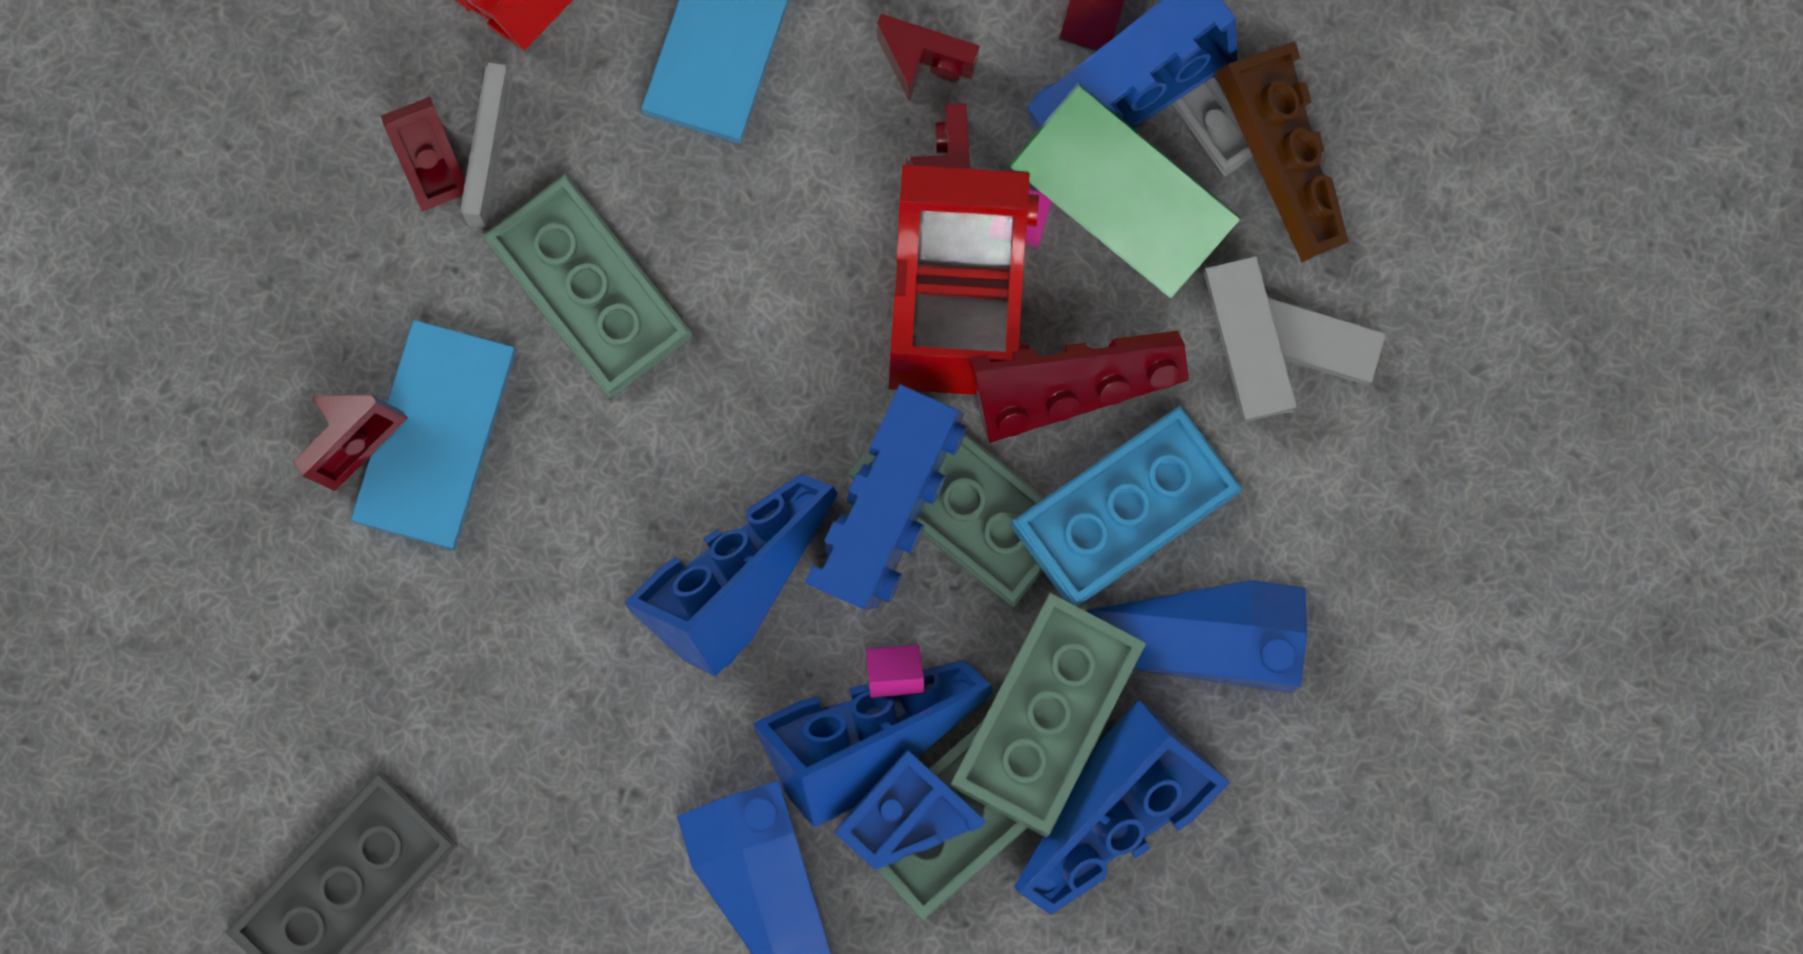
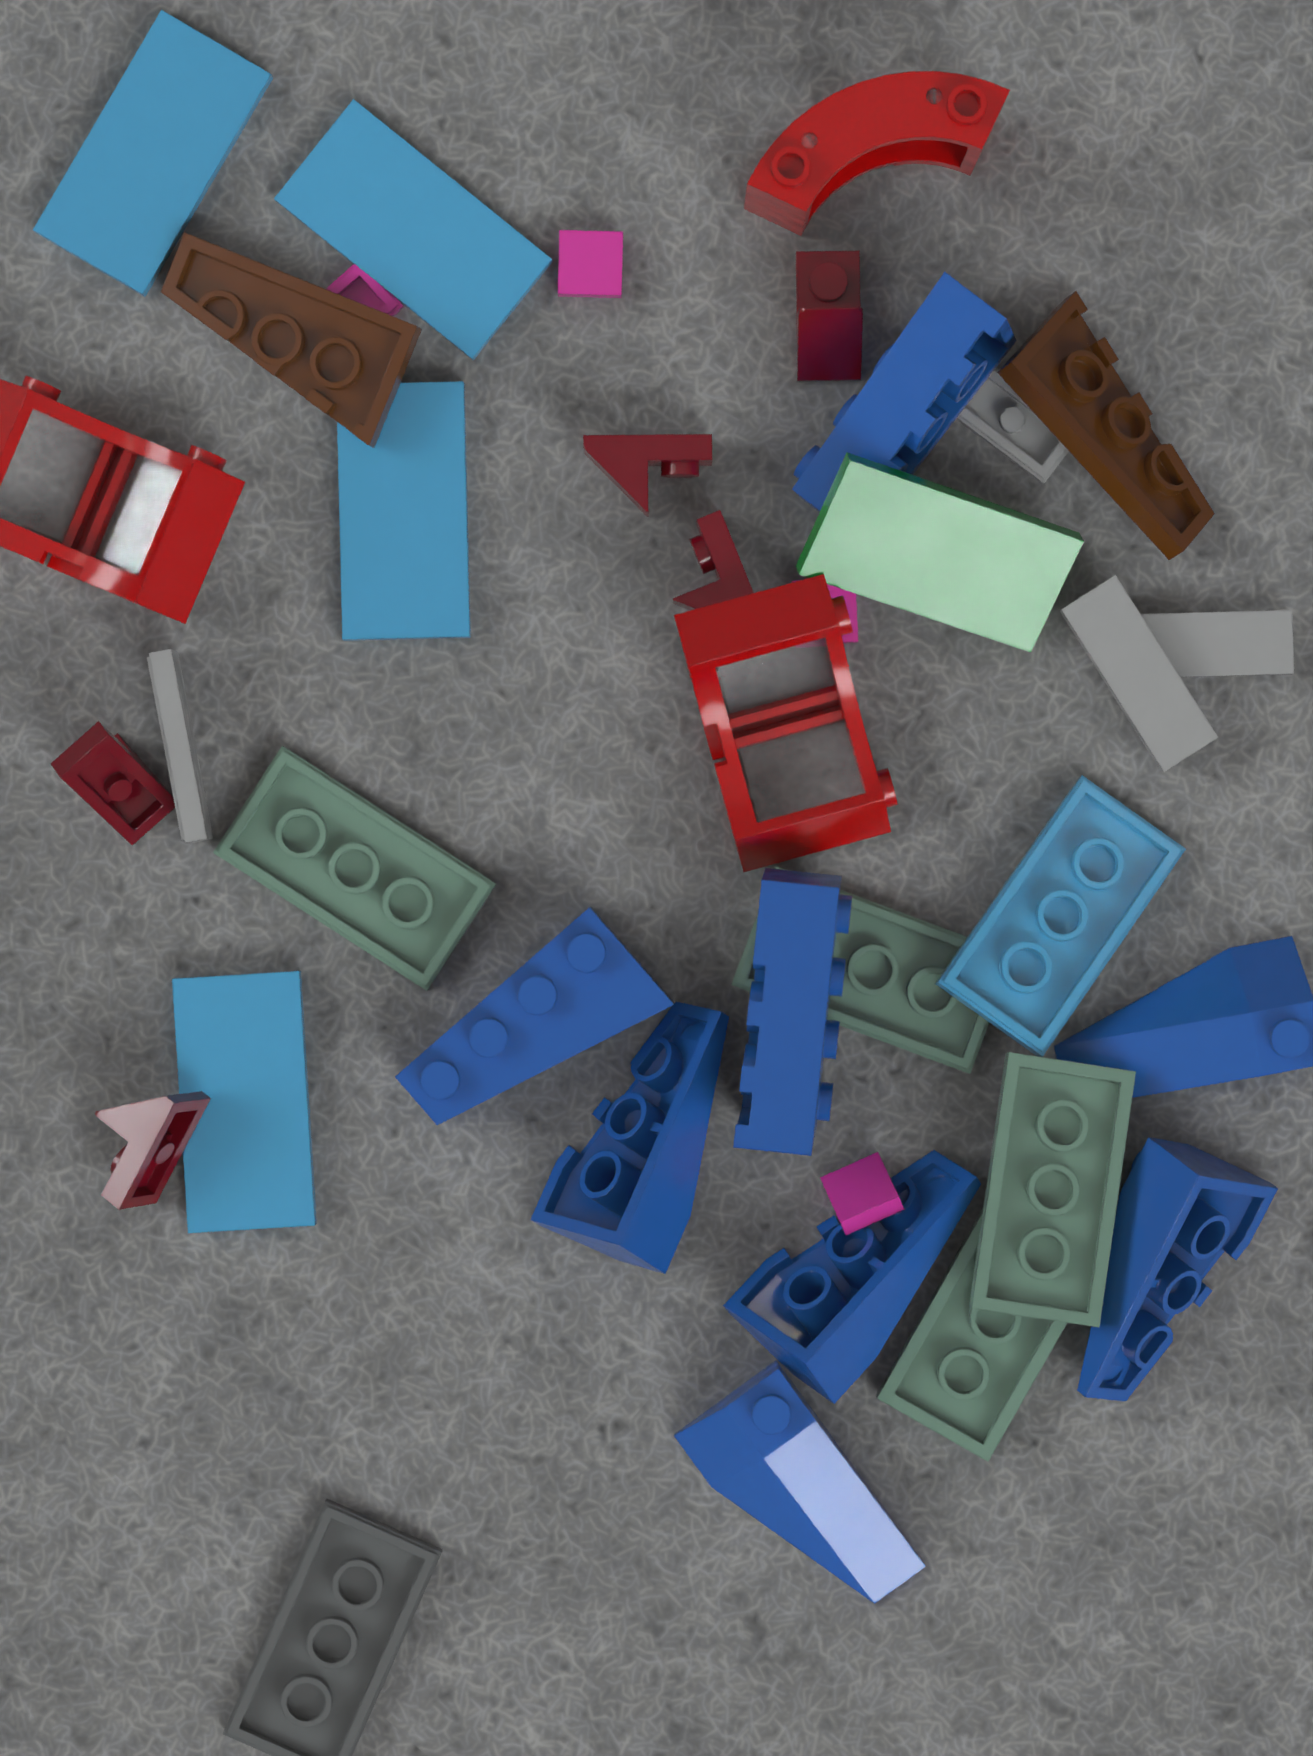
camera: 15 degrees left, 10 degrees up
(687, 443) = (547, 1011): none -> blue wedge
(905, 815) = (929, 1356): blue wing -> none
(1055, 387) = (961, 789): dark red wing -> none

